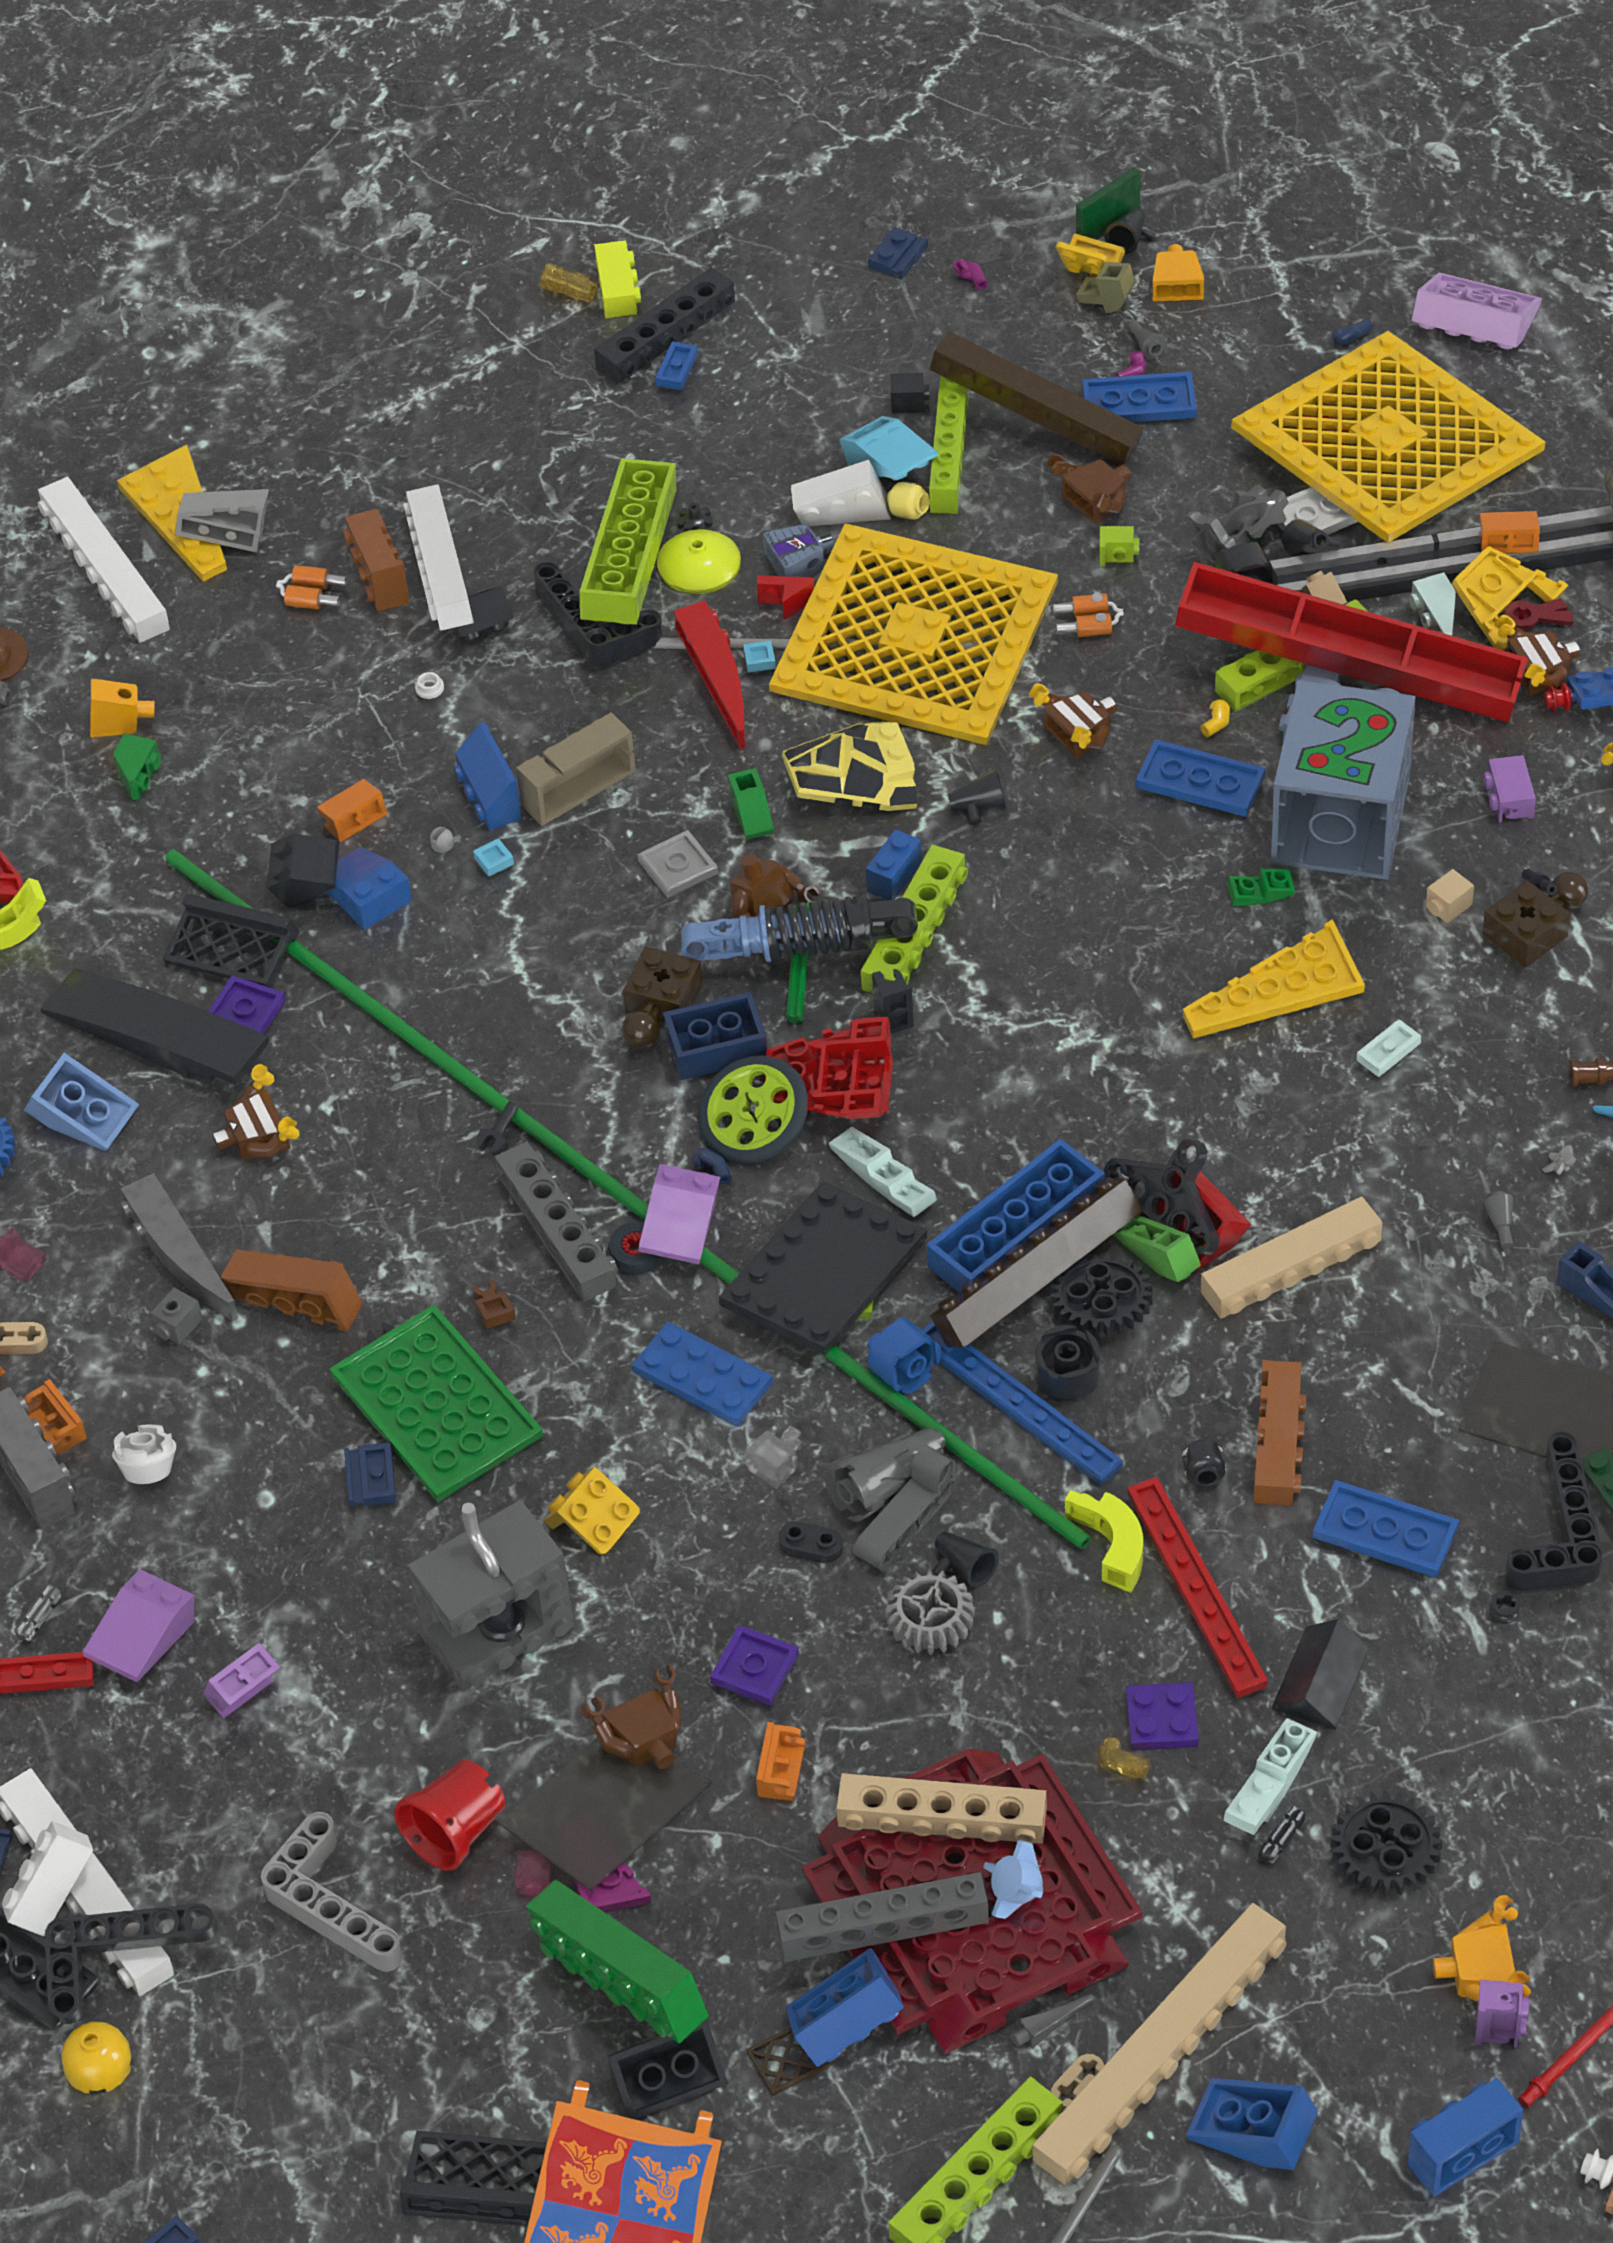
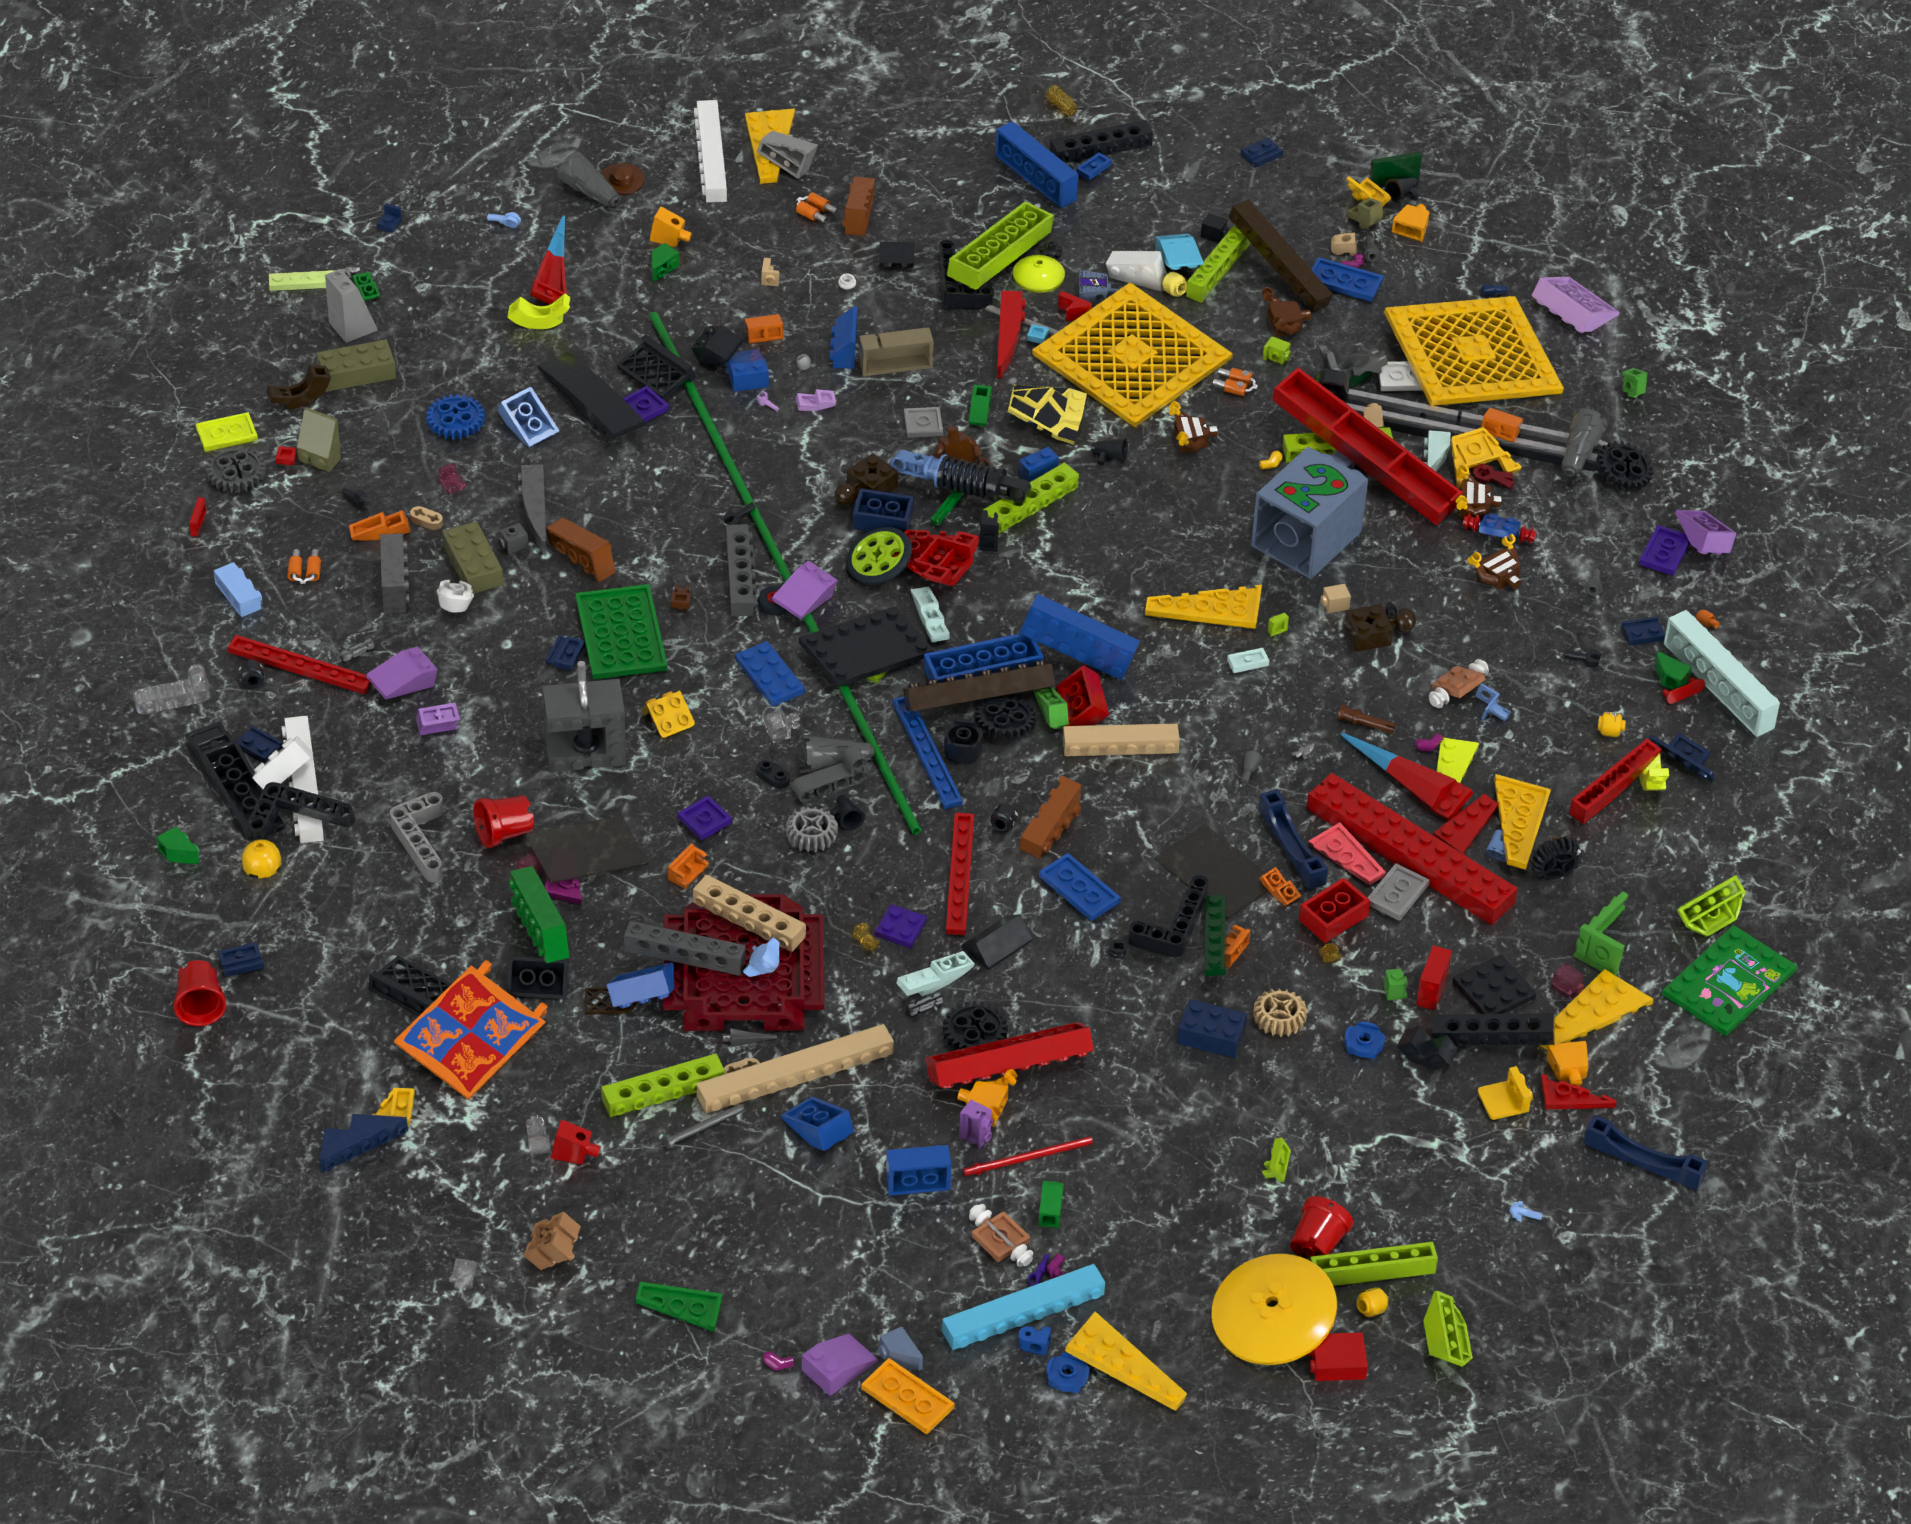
camera: 20 degrees right, 5 degrees down
(56, 1417) = (421, 562): orange hinge -> none
(131, 1375) = (472, 557): none -> olive brick
(255, 1122) = (613, 461): torso -> none
(306, 722) = (769, 275): none -> tan bracket
(420, 926) = (764, 401): none -> lavender hand
(437, 558) = (889, 215): white brick -> none
(493, 857) = (824, 380): medium azure plate -> none
(502, 893) = (821, 400): none -> lavender slope
(599, 395) = (1036, 164): none -> blue brick
(617, 279) = (1090, 107): neon yellow brick -> none
(642, 1726) = (626, 821): reddish brown torso -> none
(718, 1164) = (840, 571): dark blue arm -> none
(903, 1355) = (877, 703): blue brick -> none
(970, 271) = (1296, 177): magenta arm -> none
(1104, 345) = (1344, 244): none -> tan leg
(1120, 1526) = (933, 843): neon yellow arch -> none
(1139, 1117) = (1079, 636): none -> blue brick
(1179, 1201) = (1076, 686): black beam -> none
(1200, 777) = (1234, 484): blue plate -> none
(1266, 888) = (1242, 556): green slope -> none
(1304, 538) = (1378, 383): black piece -> none
(1394, 972) = (1278, 624): none -> lime plate
(1473, 1868) = (1008, 1054): none -> red brick
(1510, 788) = (1410, 557): medium lavender hinge -> none

